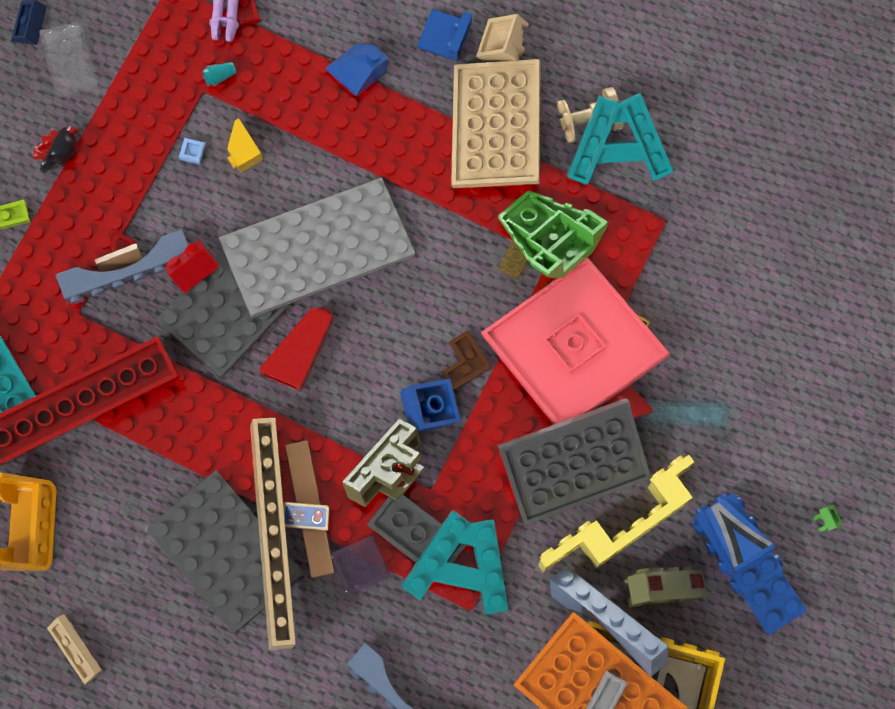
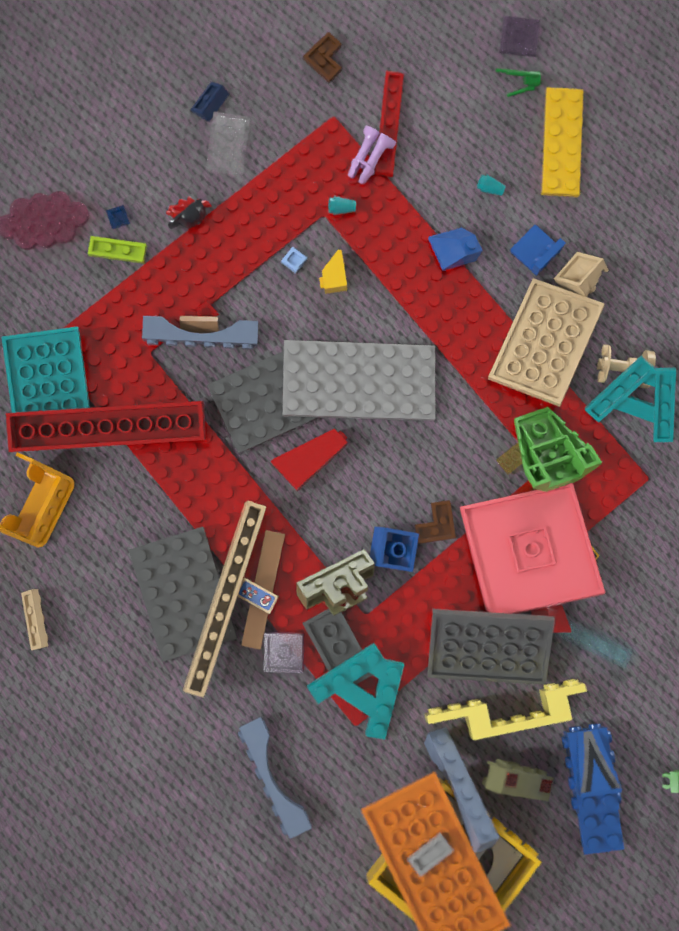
camera: 25 degrees right, 5 degrees up
(191, 266) = (253, 354): red brick -> none

